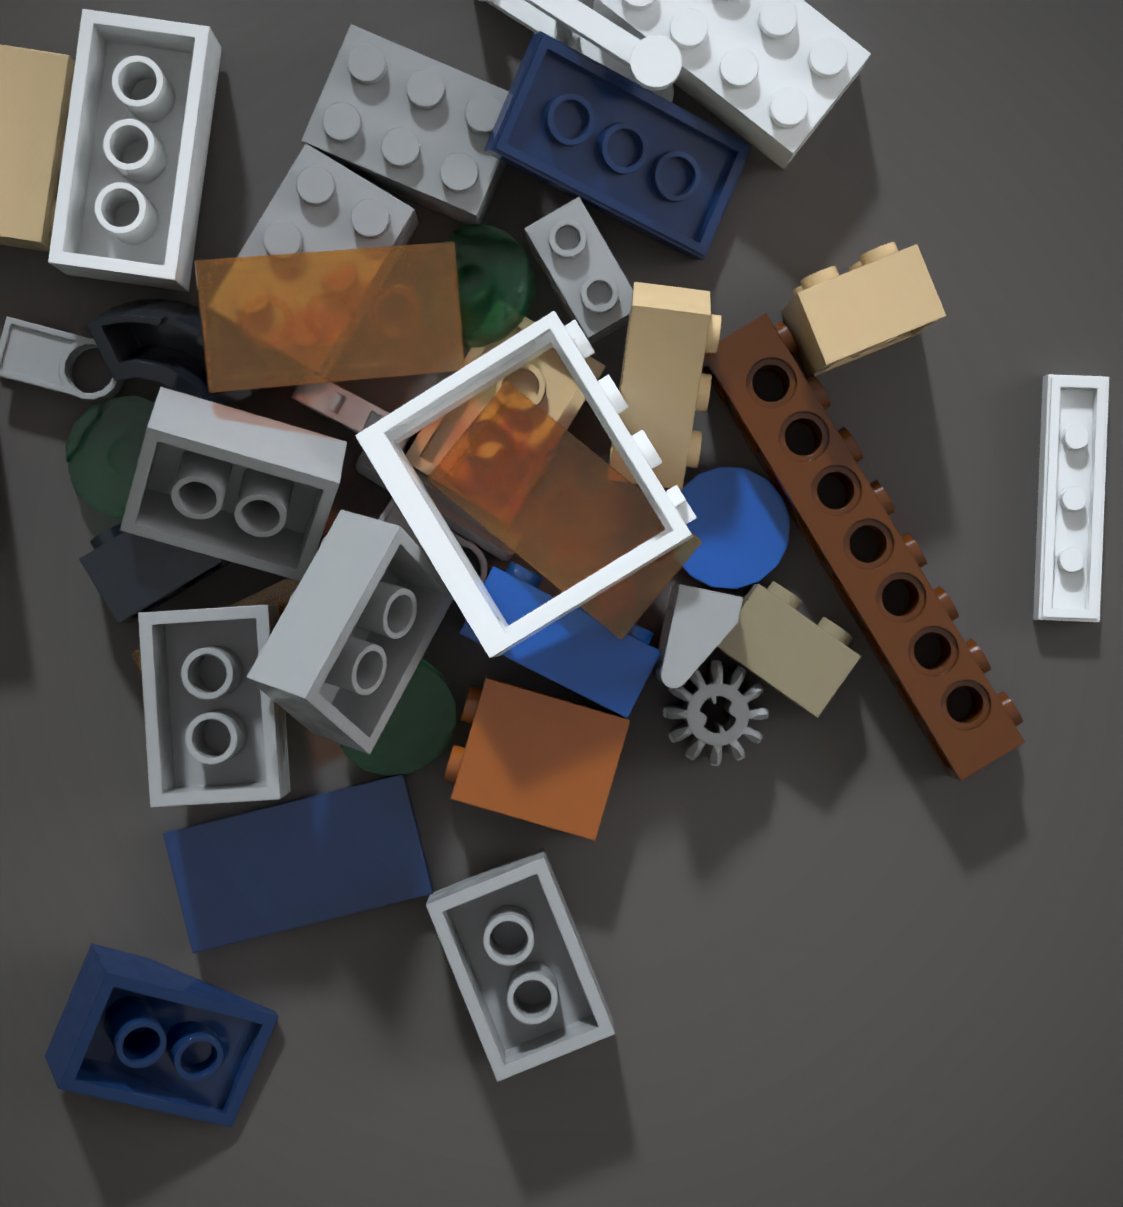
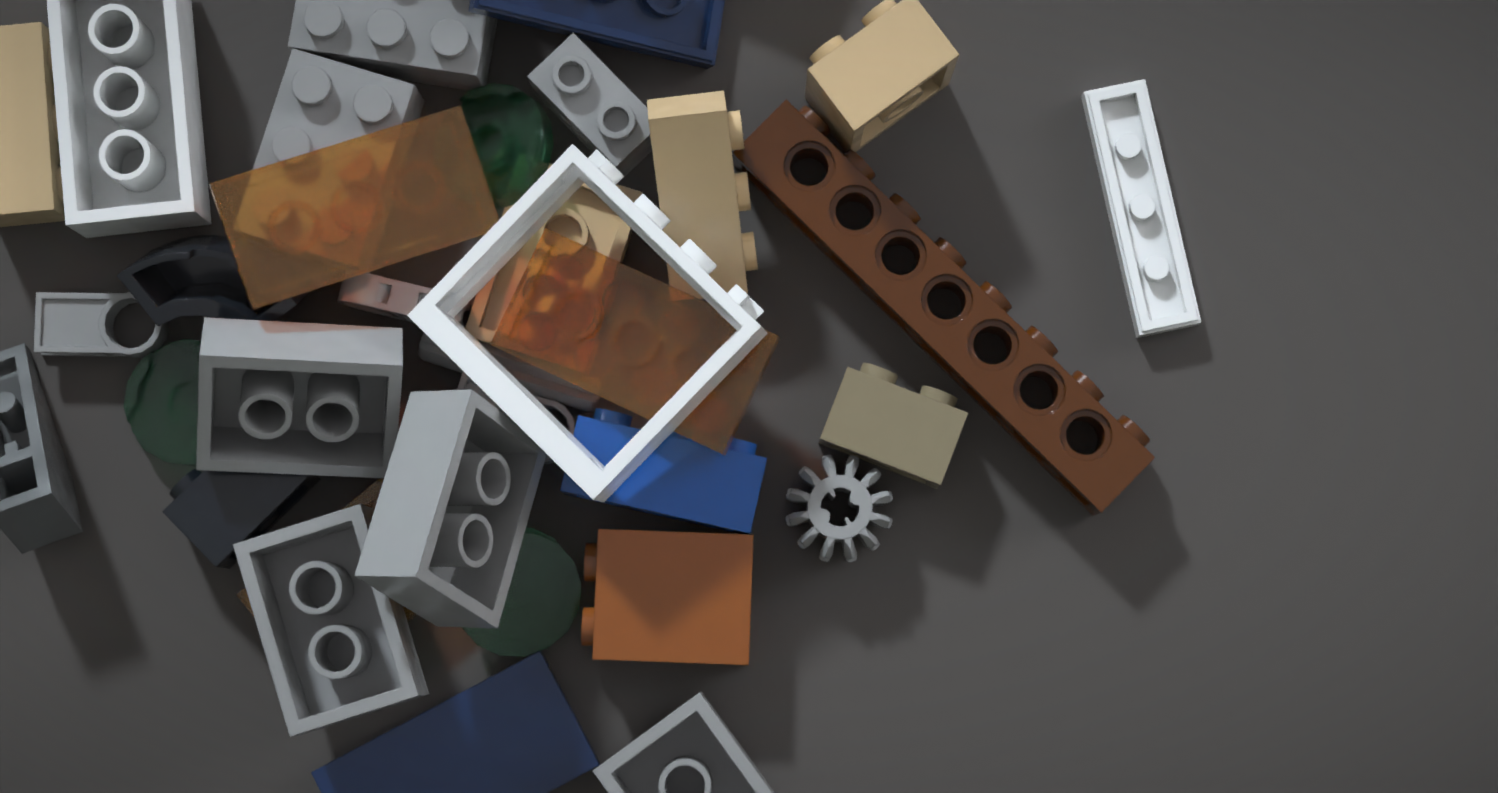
camera: 15 degrees left, 5 degrees down
(692, 629) = (792, 423): light grey tile -> none
(740, 527) = (816, 316): blue tile -> none

